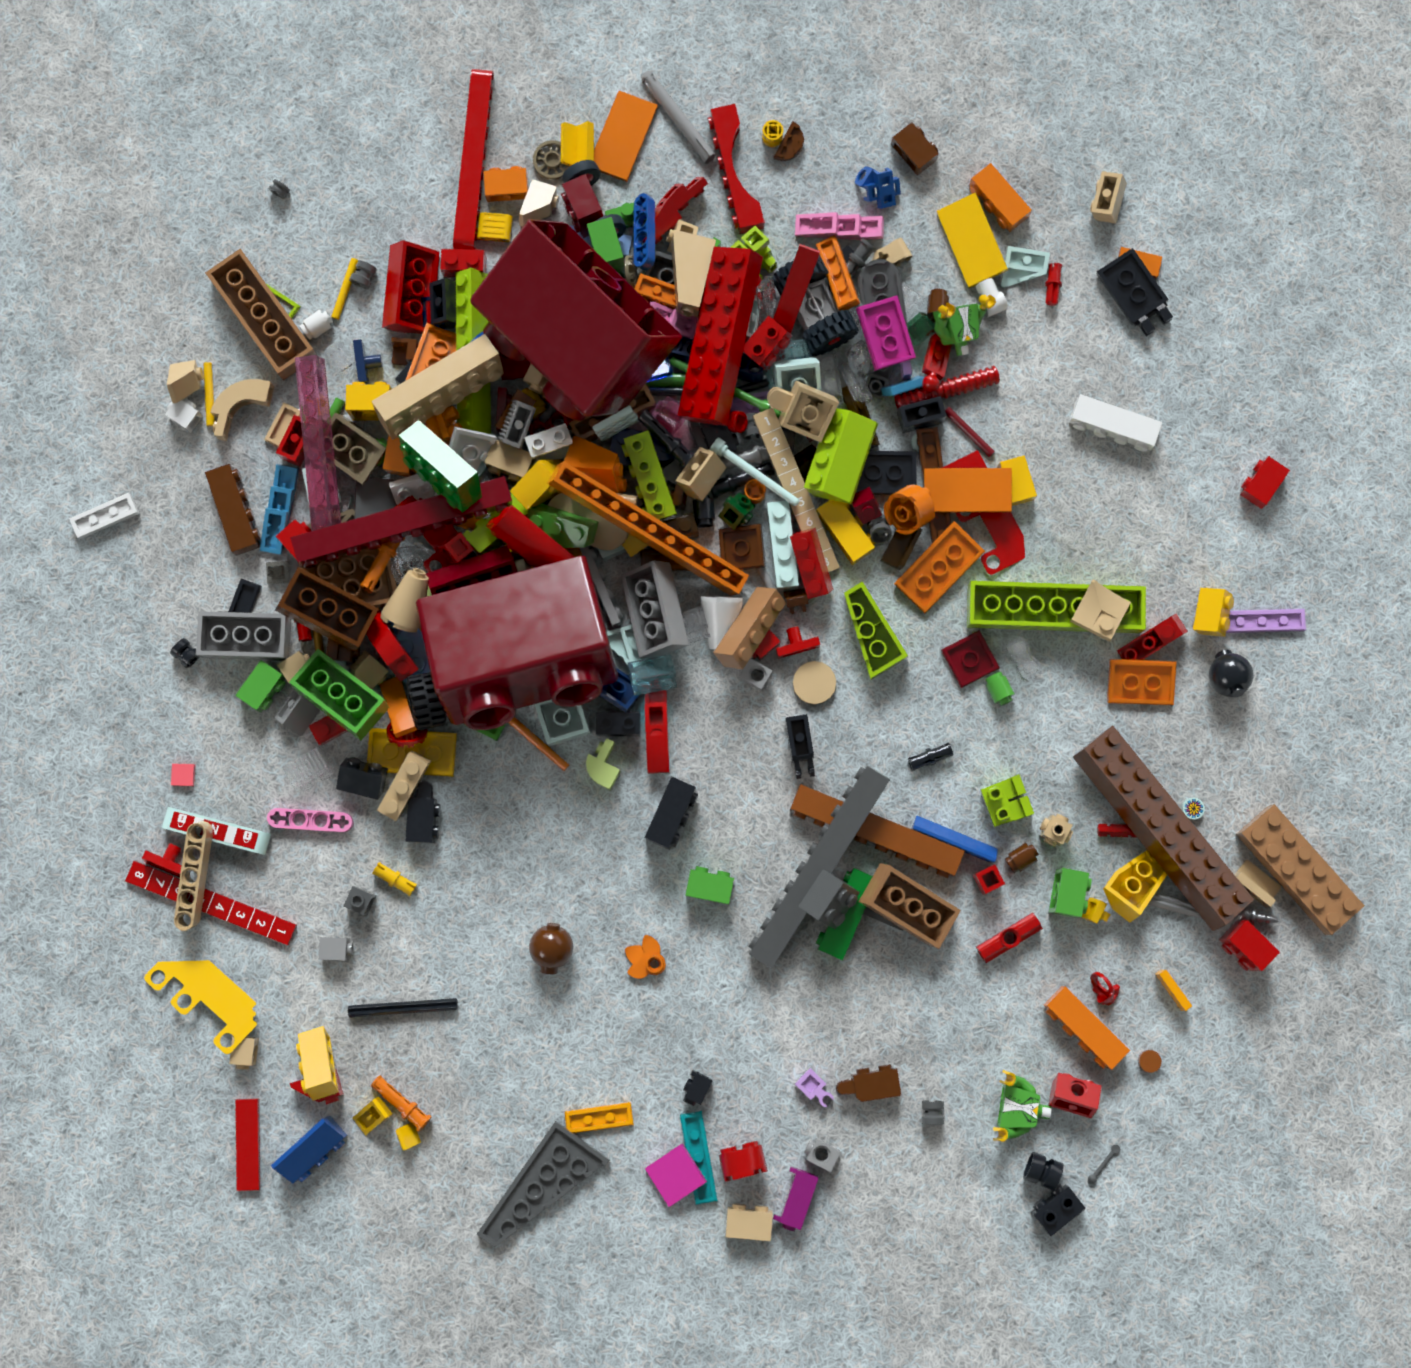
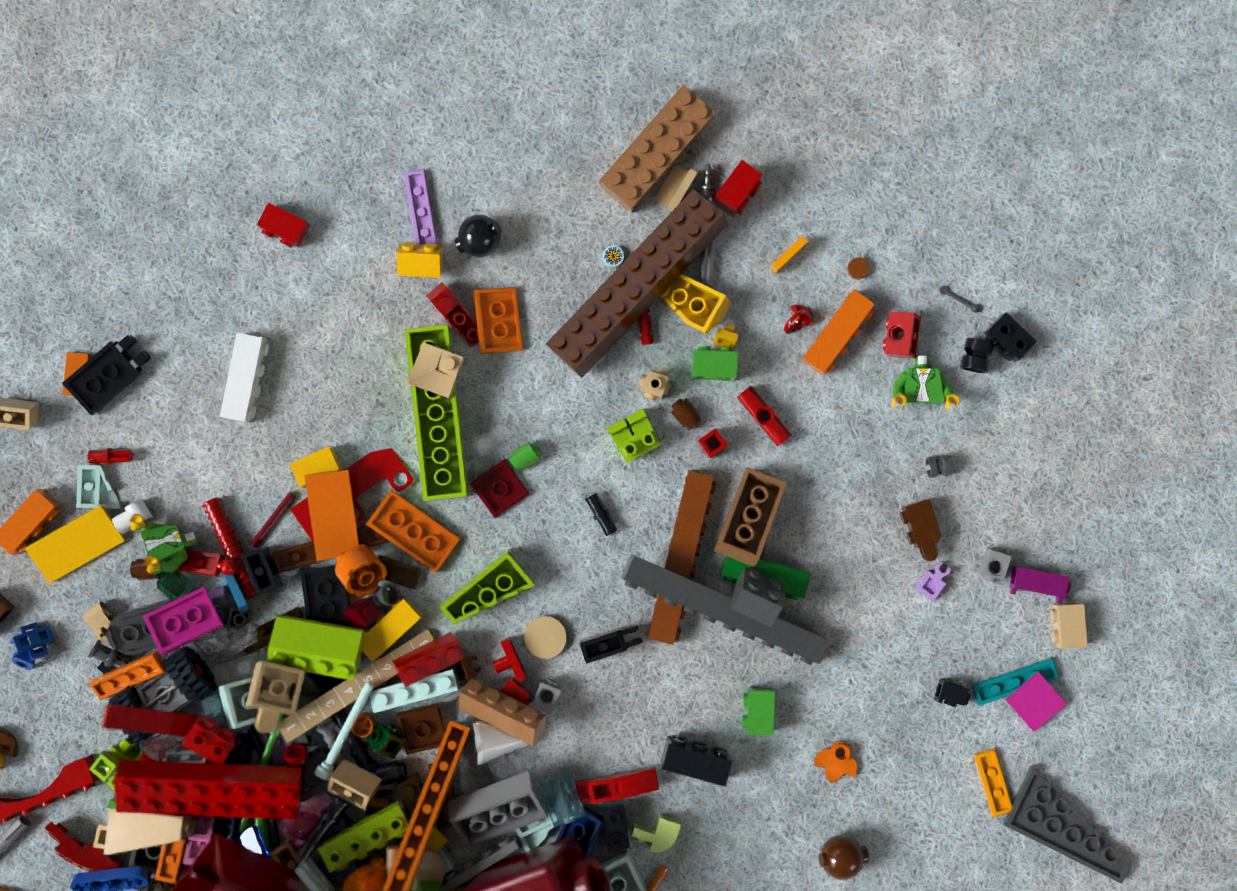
camera: 105 degrees left, 5 degrees up
(742, 1162) = (1015, 641): red brick -> none
(842, 226) = (78, 675): bright pink slope -> none
(956, 839) = (677, 480): blue slope -> none

